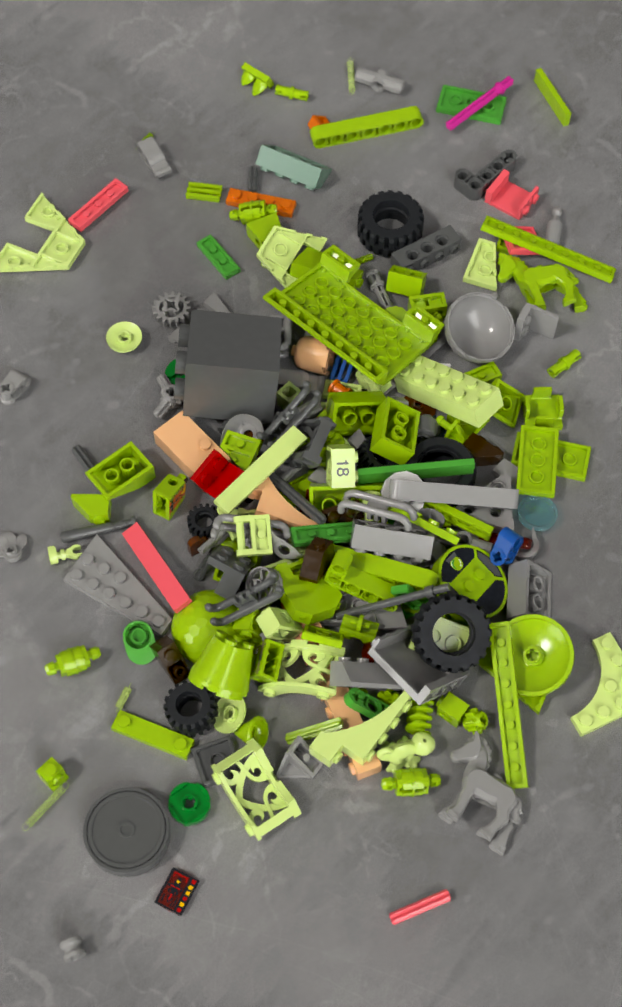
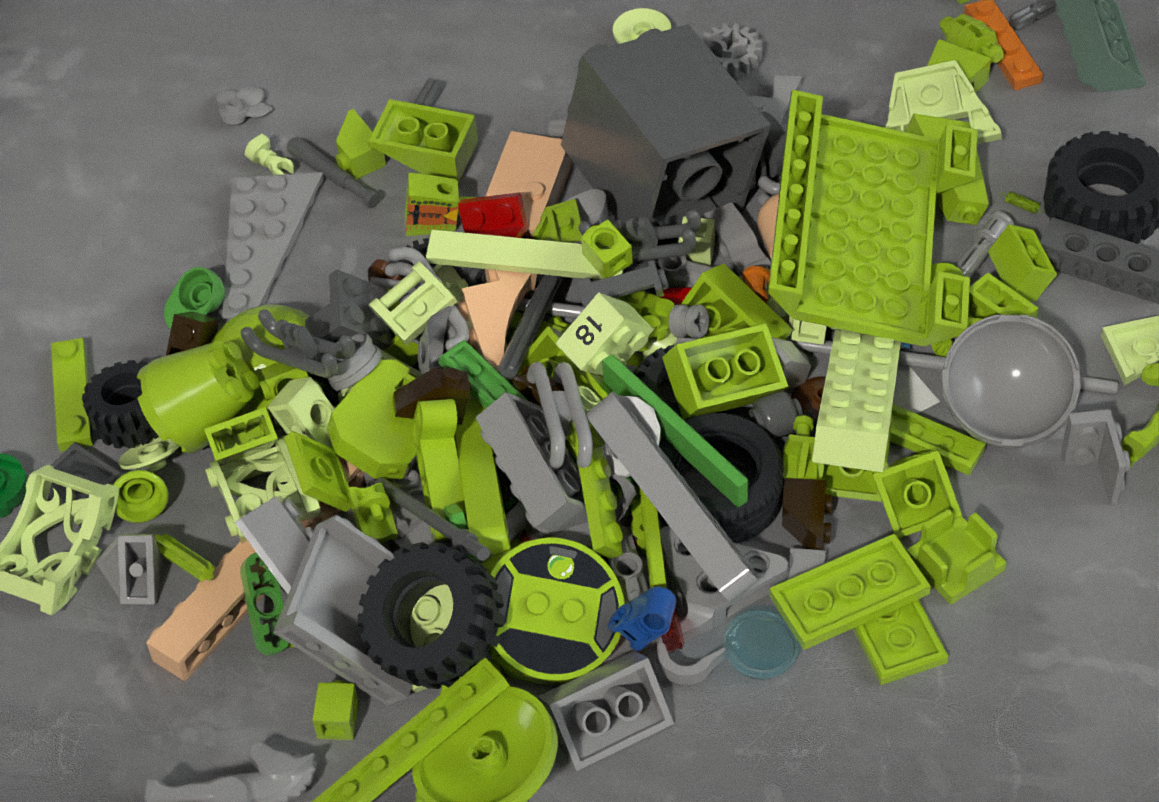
camera: 60 degrees right, 10 degrees down
(72, 661) = (116, 249): lime piece -> none
(123, 697) = (105, 334): yellowish green piece -> none
(157, 567) = (308, 251): coral tile -> none
(218, 257) = (866, 51): bright green tile -> none
(299, 427) = (606, 261): none -> lime brick
(346, 428) = (688, 321): none -> light grey wheel
(360, 740) = (193, 610): yellowish green arch -> none
(402, 753) = (222, 687): yellowish green animal -> none
(410, 782) = (180, 717): lime piece -> none
(418, 717) = (292, 674): lime piece -> none
(475, 721) = (340, 757): lime gear -> none
(564, 363) = (1073, 540): lime pin -> none

